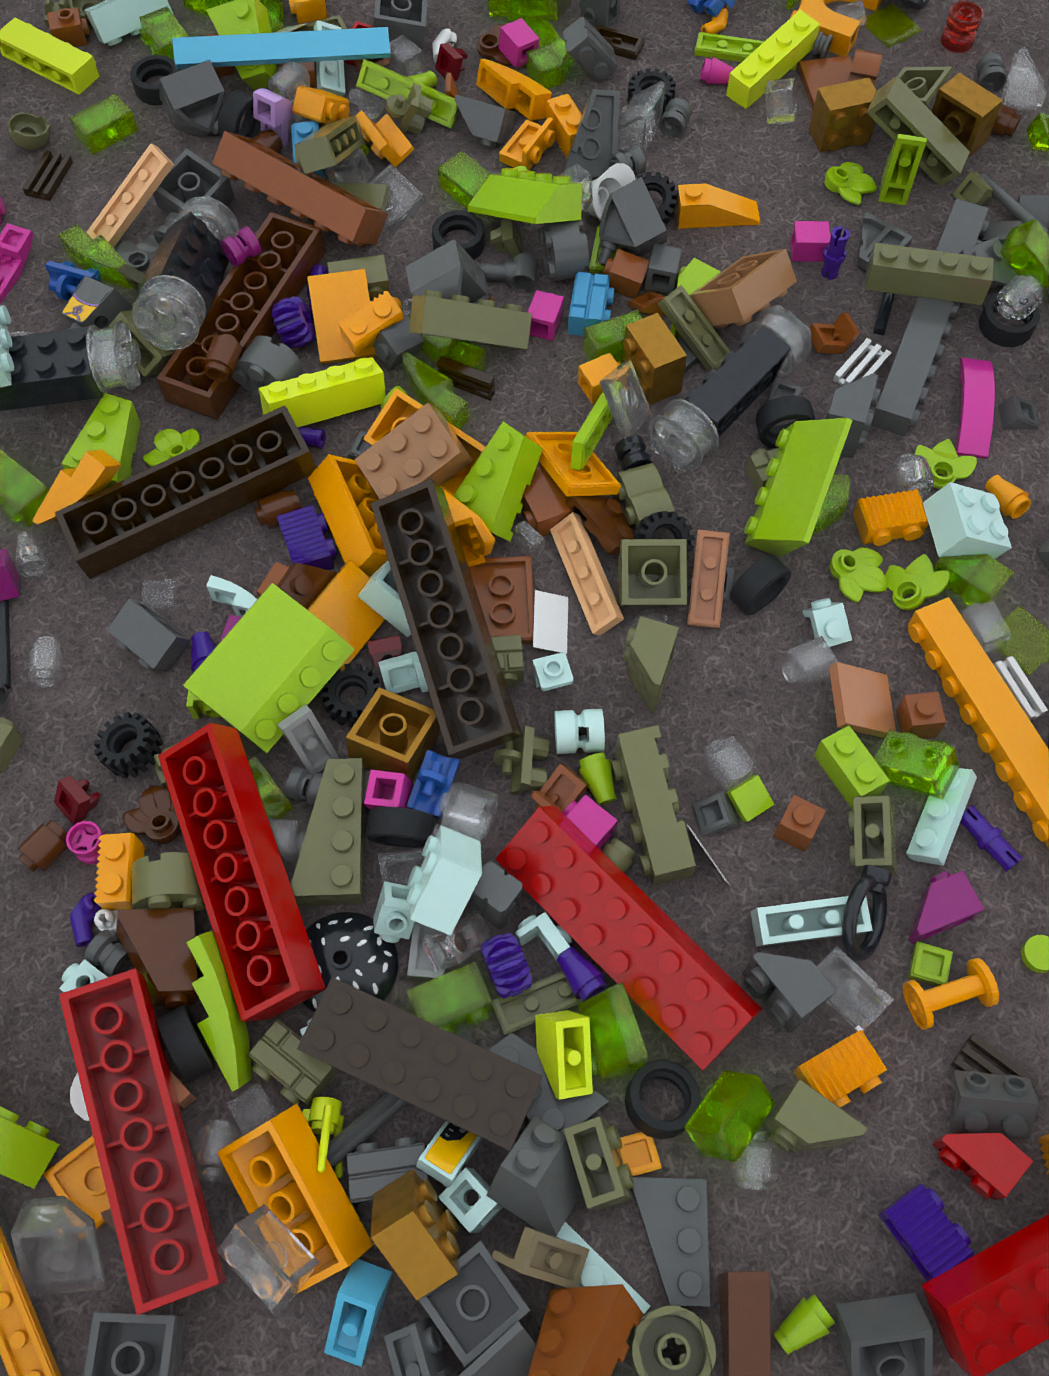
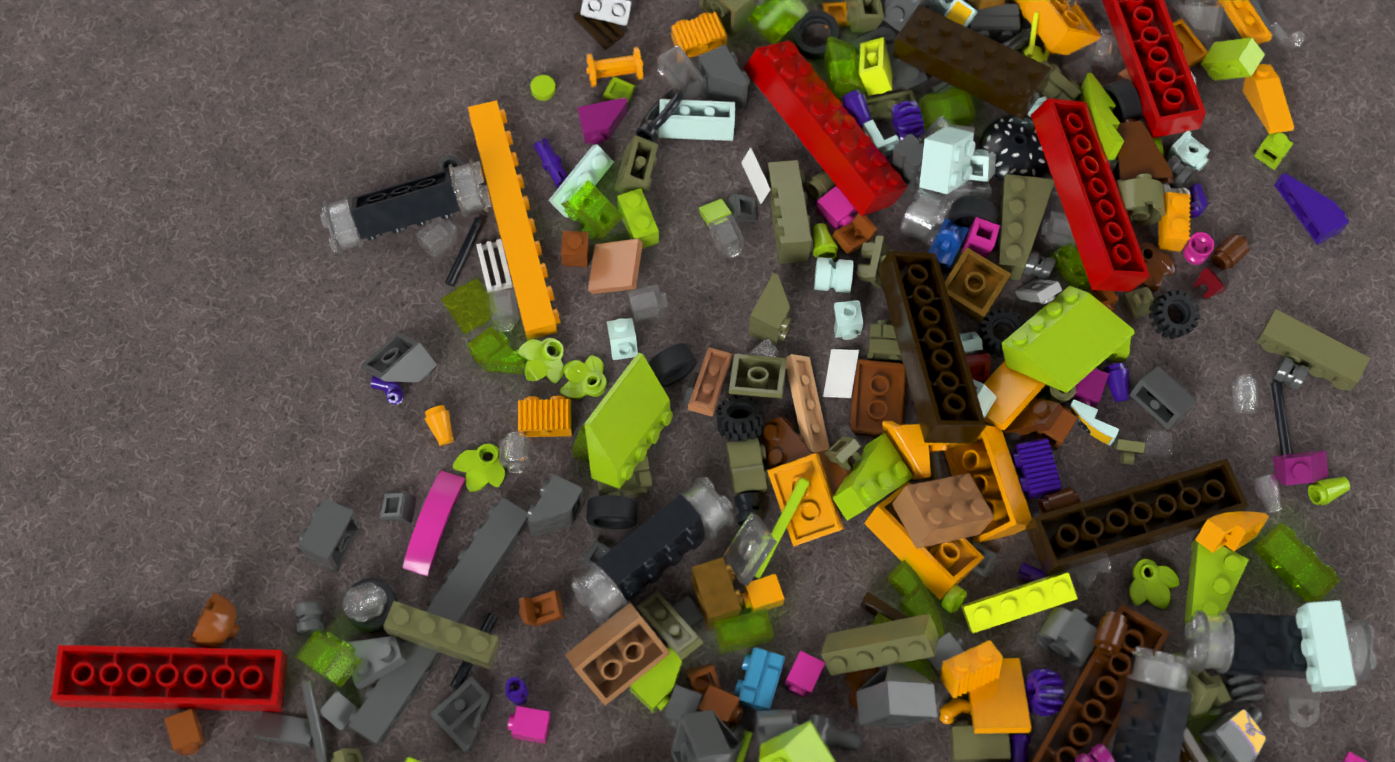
camera: 175 degrees left, 5 degrees up
(193, 578) = (1128, 449): none -> olive tile
(537, 503) = (842, 451): none -> olive tile
(799, 823) = (686, 186): dark orange brick -> none
(873, 351) = (512, 572): white tile -> none
(966, 522) = (490, 389): light aqua brick -> none

